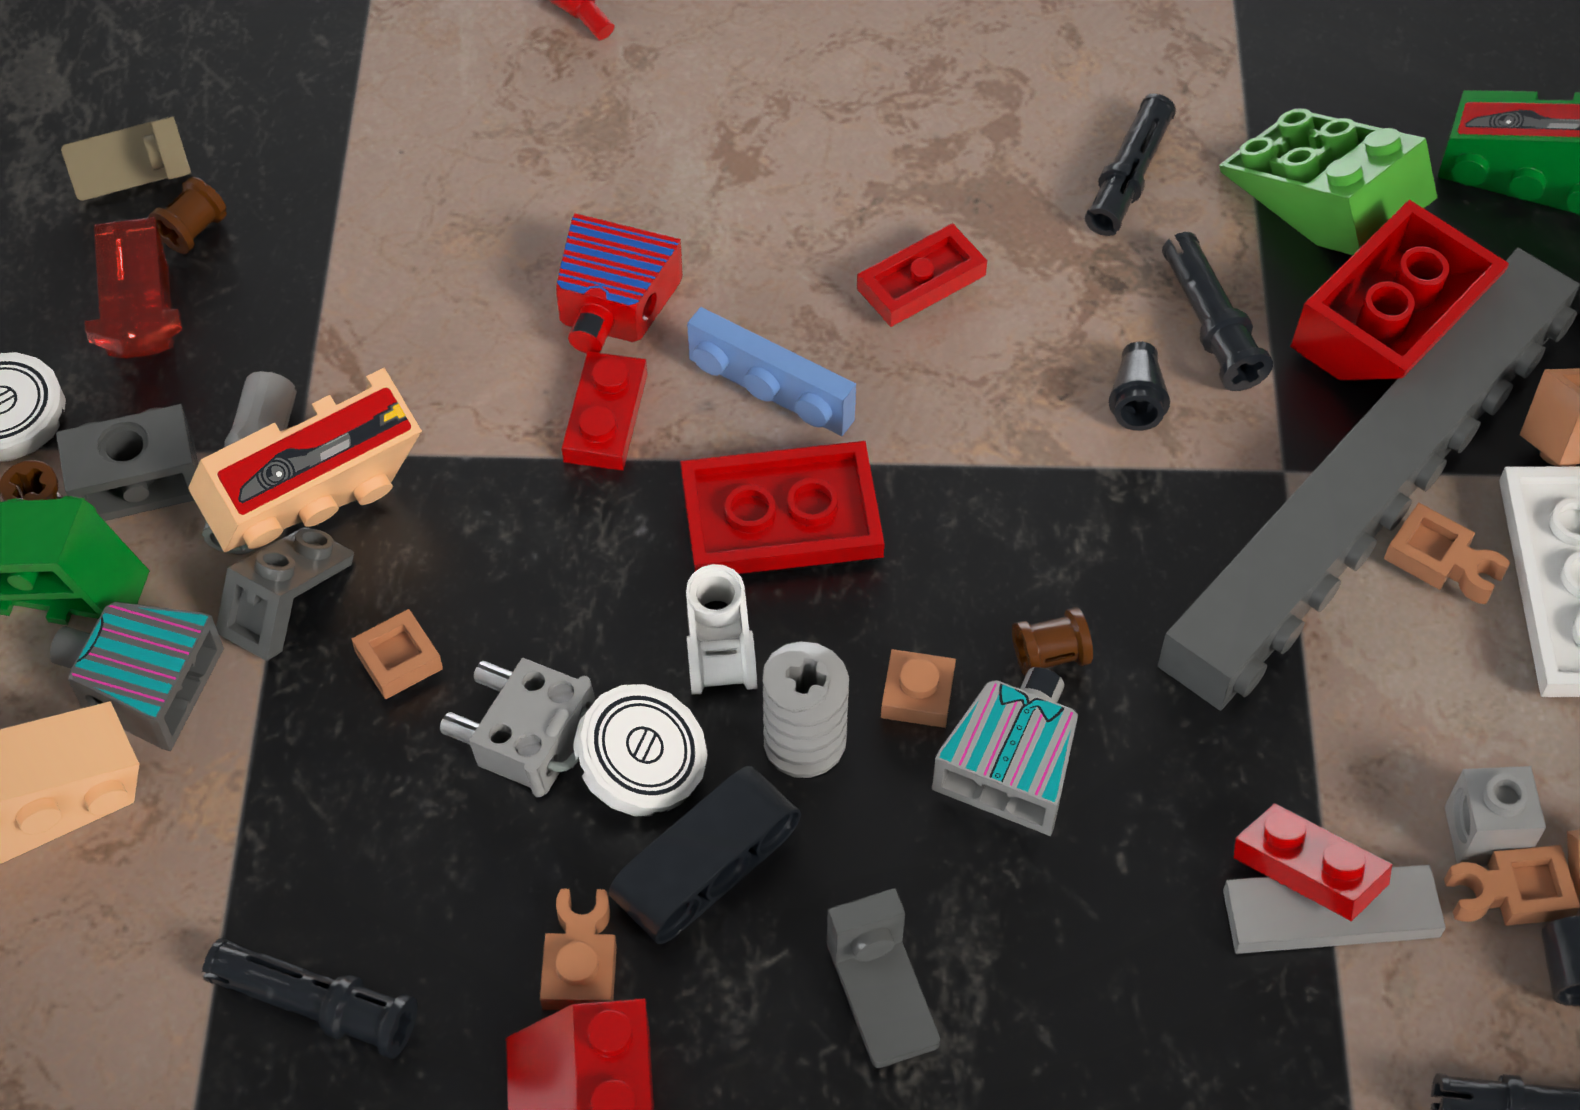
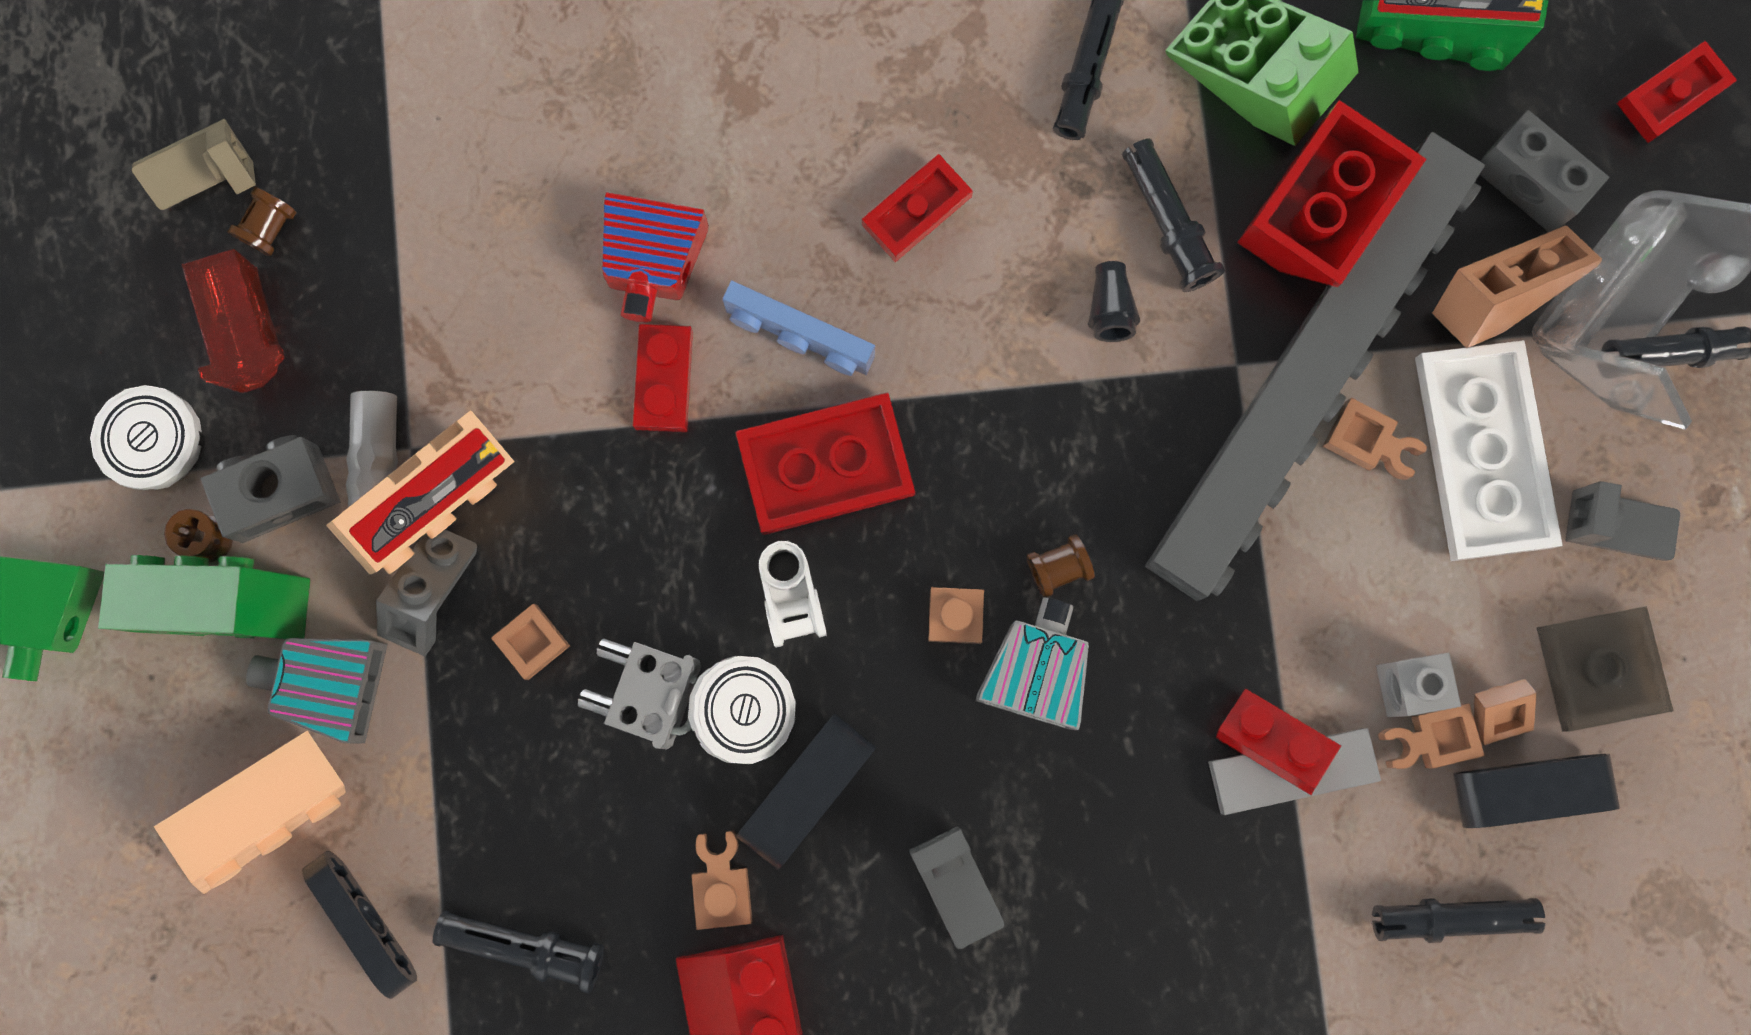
camera: 10 degrees left, 25 degrees up
(116, 941) = (359, 924): none -> black beam
(805, 709) = (856, 651): light grey piece -> none

